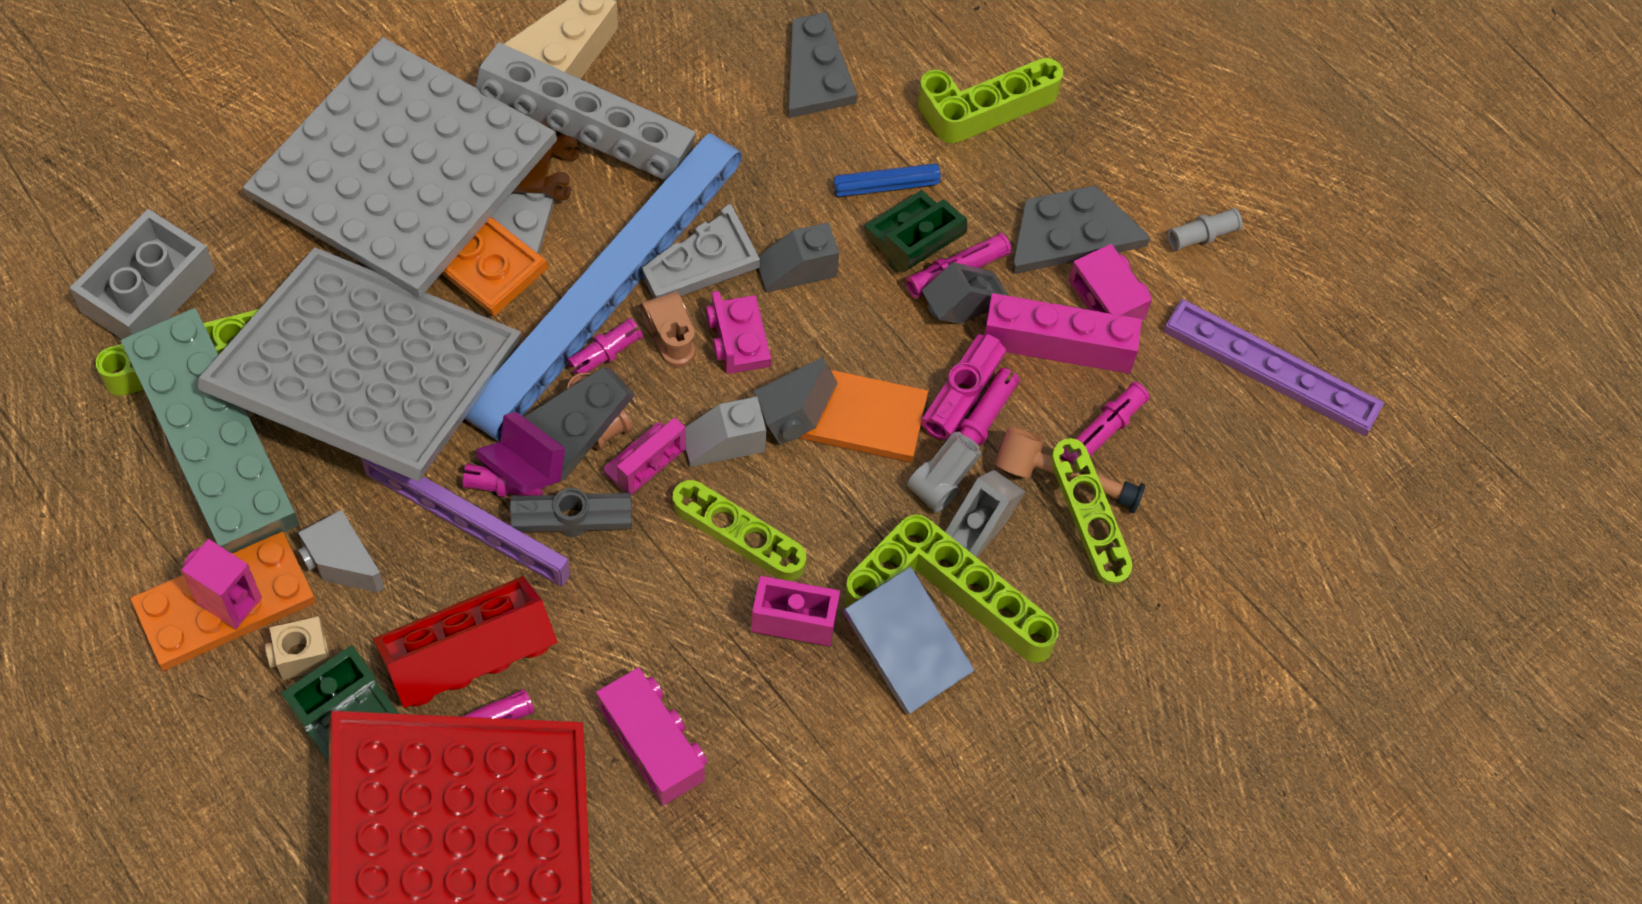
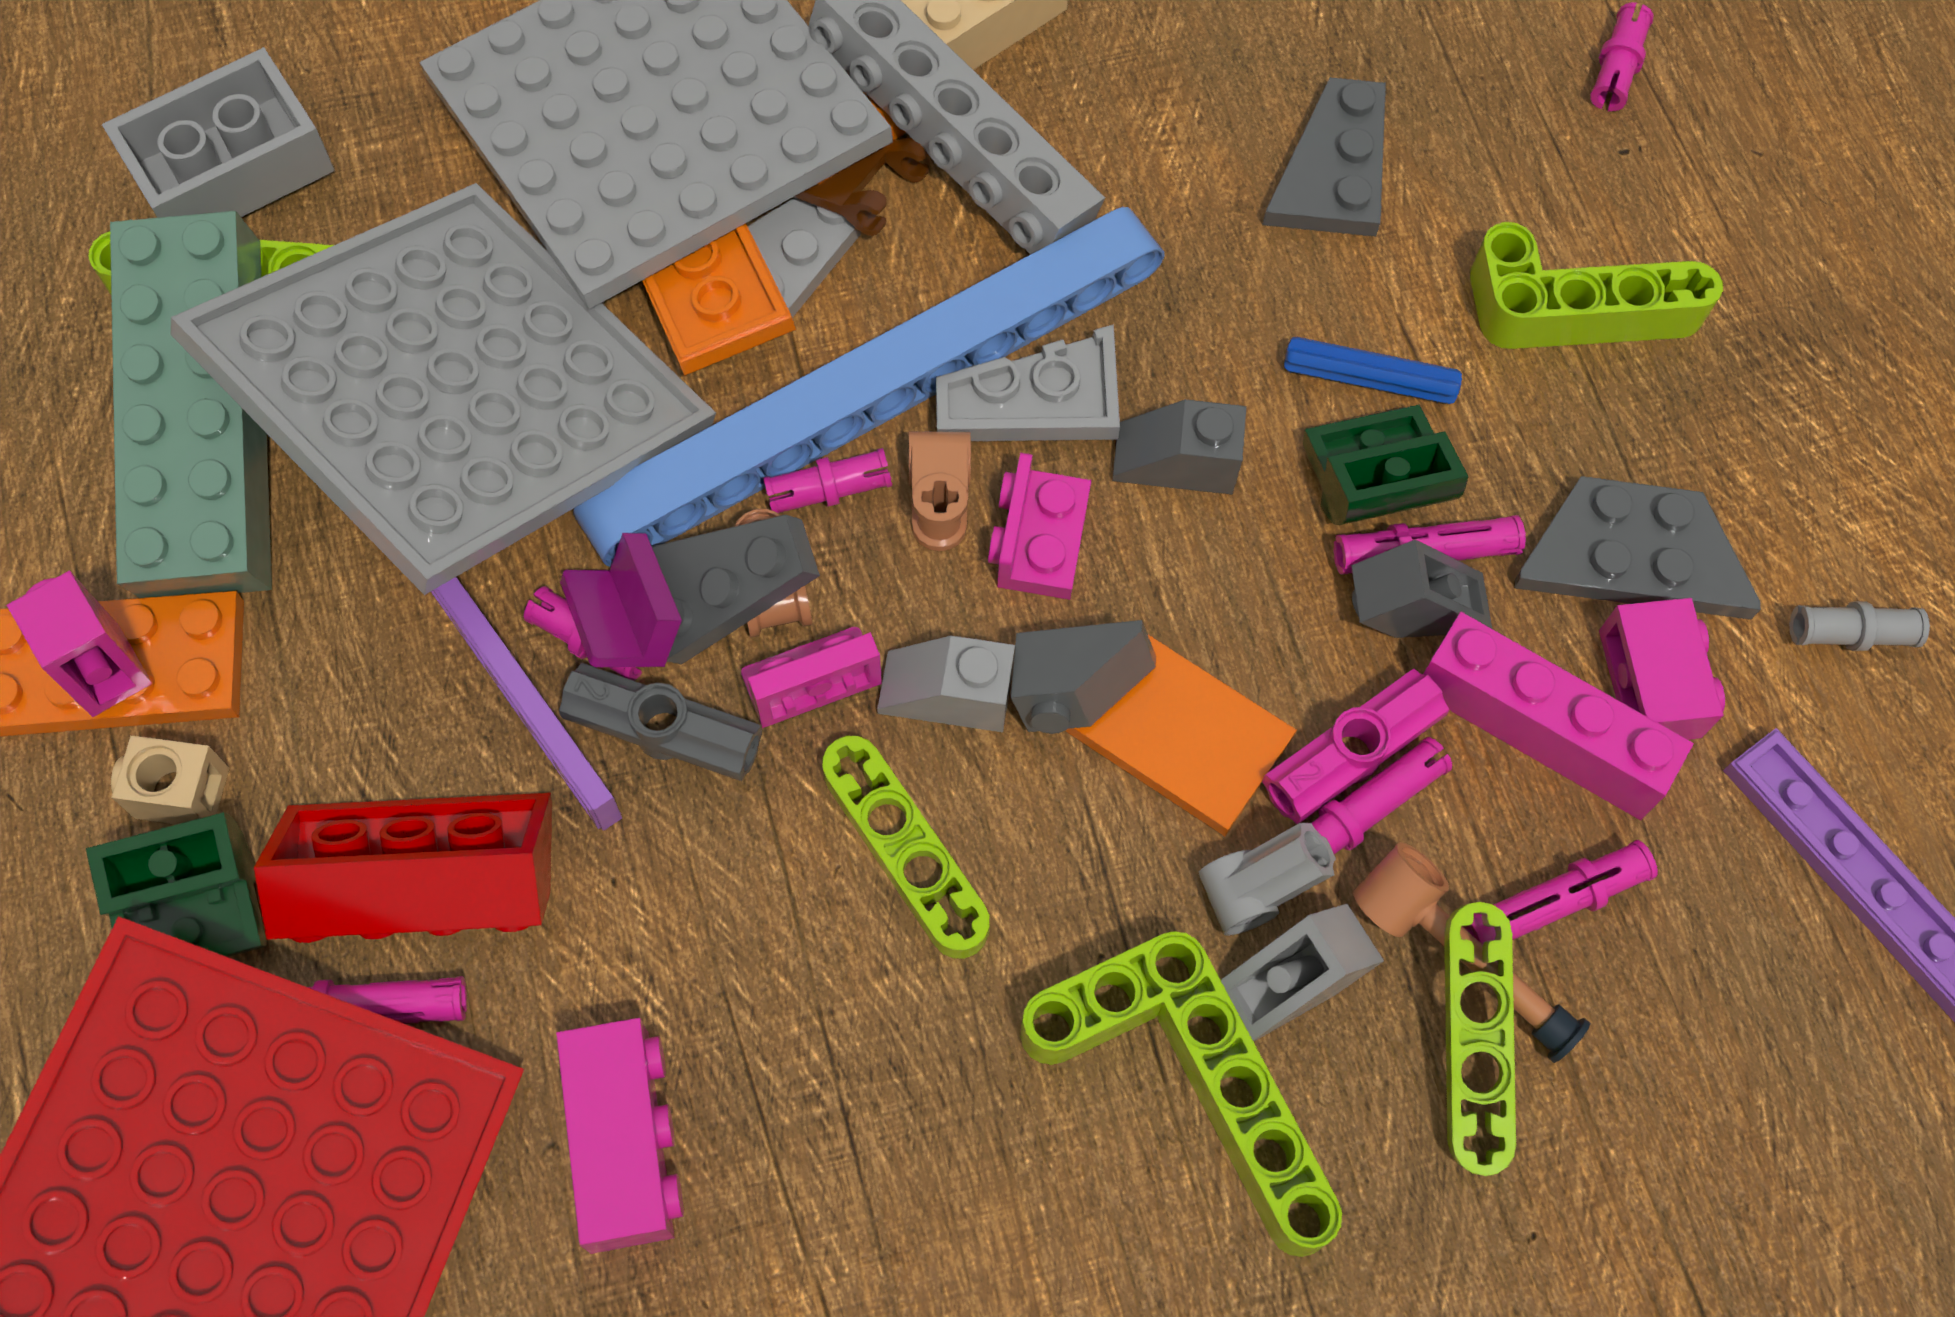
camera: 25 degrees right, 5 degrees up
(339, 554) = (296, 654): light grey slope -> none
(795, 611) = (926, 1018): dark pink brick -> none
(908, 640) = (1087, 1141): sand blue tile -> none

